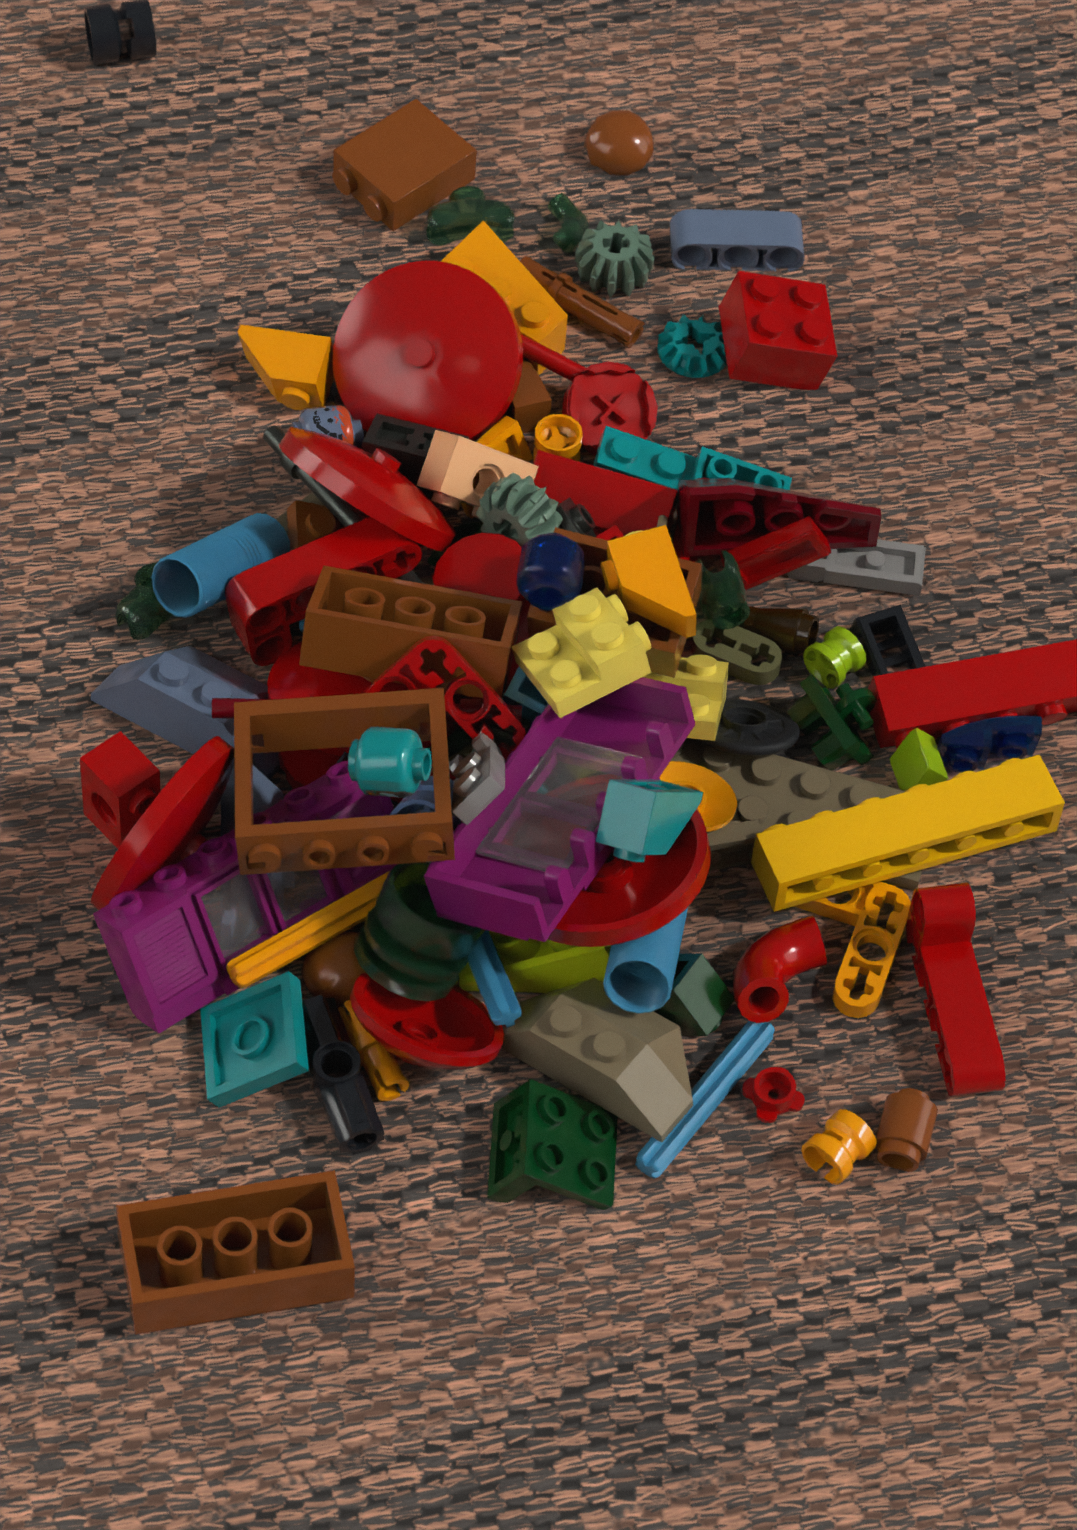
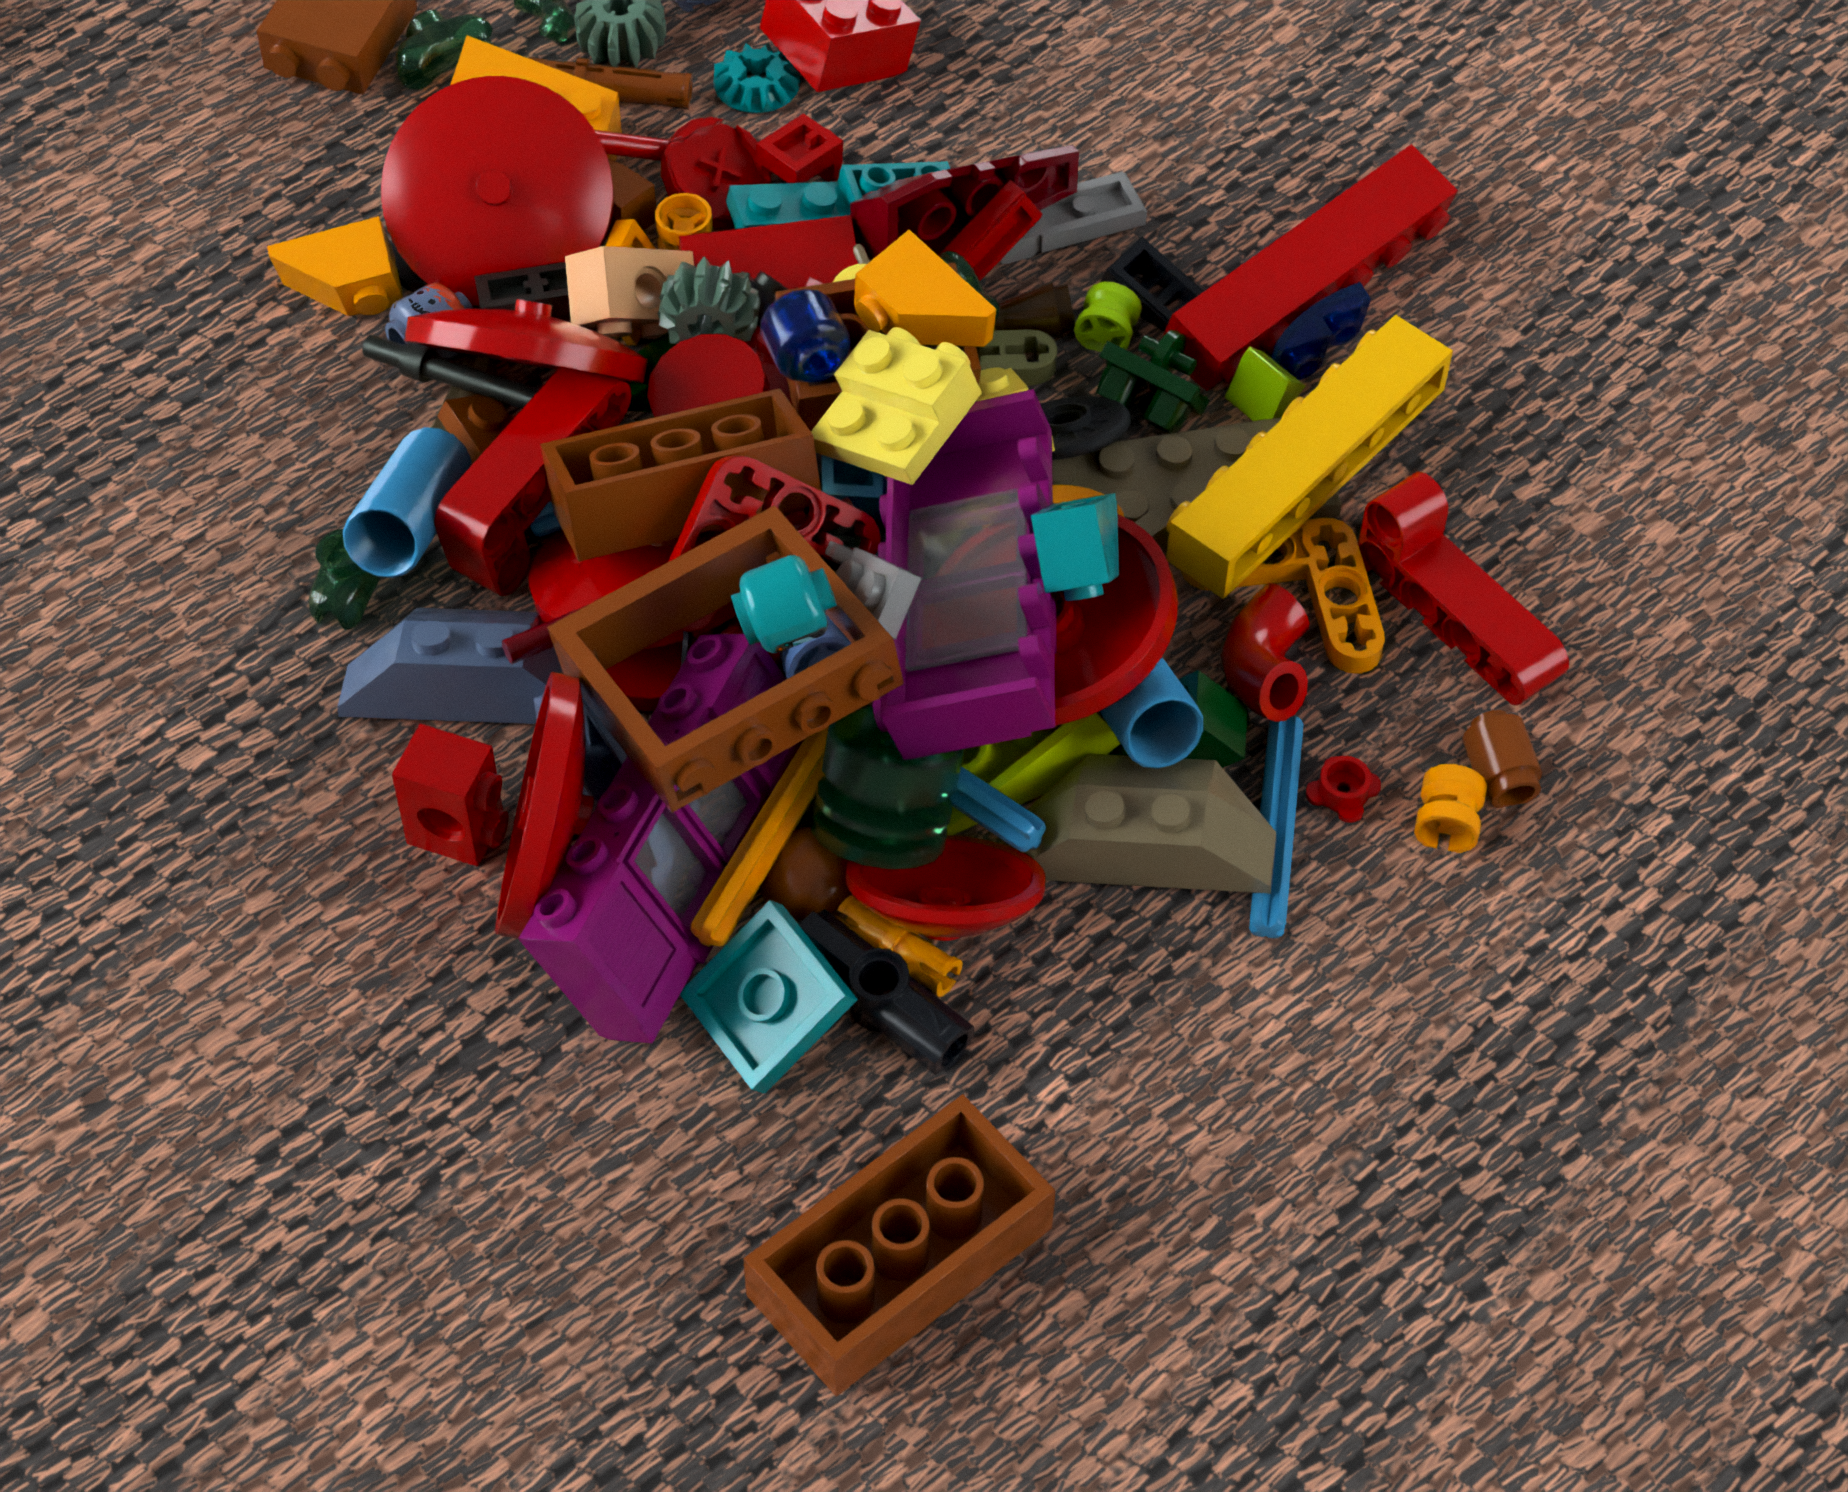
camera: 25 degrees left, 0 degrees up
(554, 1144) = (1153, 951): dark green bracket -> none
(682, 421) = (801, 151): none -> red bracket

